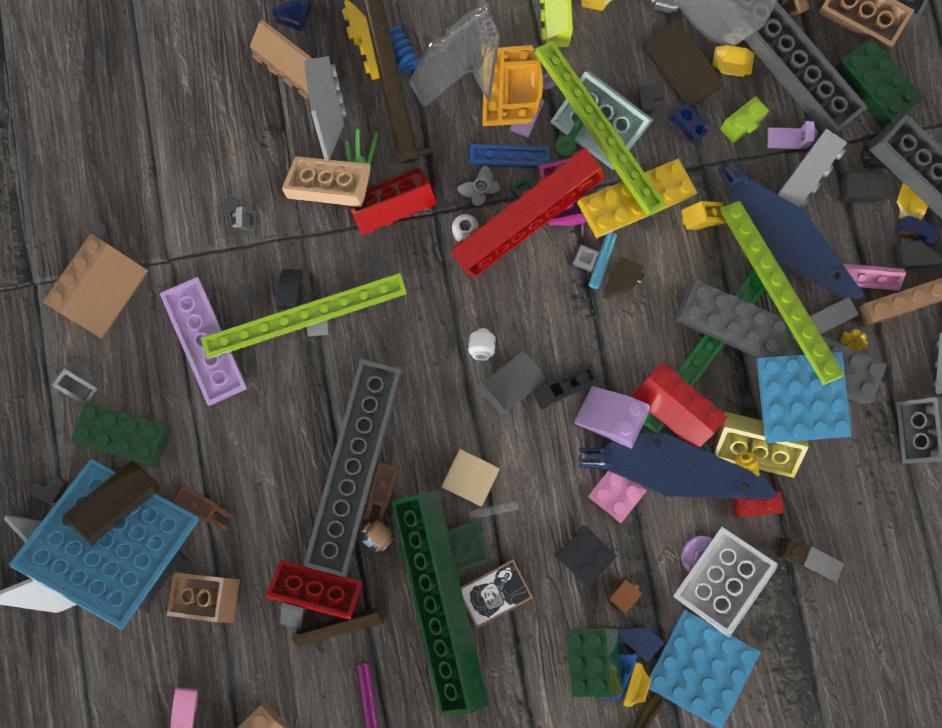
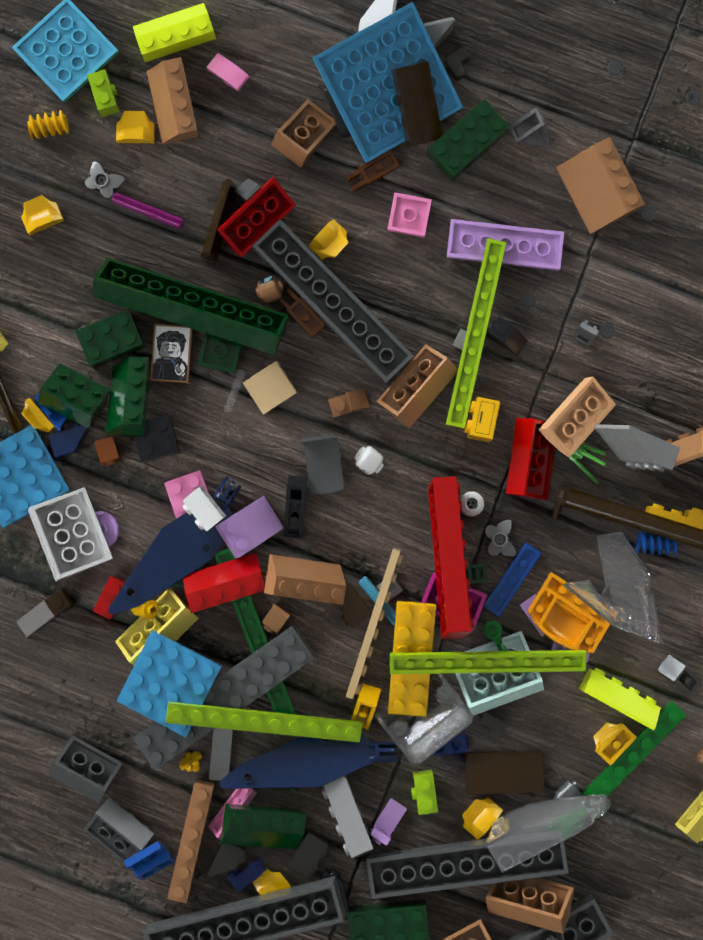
camera: 125 degrees right, 5 degrees up
(226, 447) = (409, 215): none -> bright pink plate
(296, 507) = (329, 241): none -> yellow slope
(381, 261) = (483, 419): none -> yellow brick
(385, 341) = (418, 385): none -> medium nougat slope
(440, 396) = (348, 403): none -> medium nougat slope
(517, 661) = (110, 339): none -> dark green brick
(563, 606) = (129, 397): none -> dark green slope
(624, 465) = (203, 508): none -> white slope
(630, 333) = (305, 579): none -> medium nougat slope
(635, 247) = (372, 631): none -> tan plate
(678, 340) = (275, 618): none -> medium nougat slope
(689, 143) = (434, 729): none -> clear windscreen
(868, 240) = (262, 826): none -> dark green slope

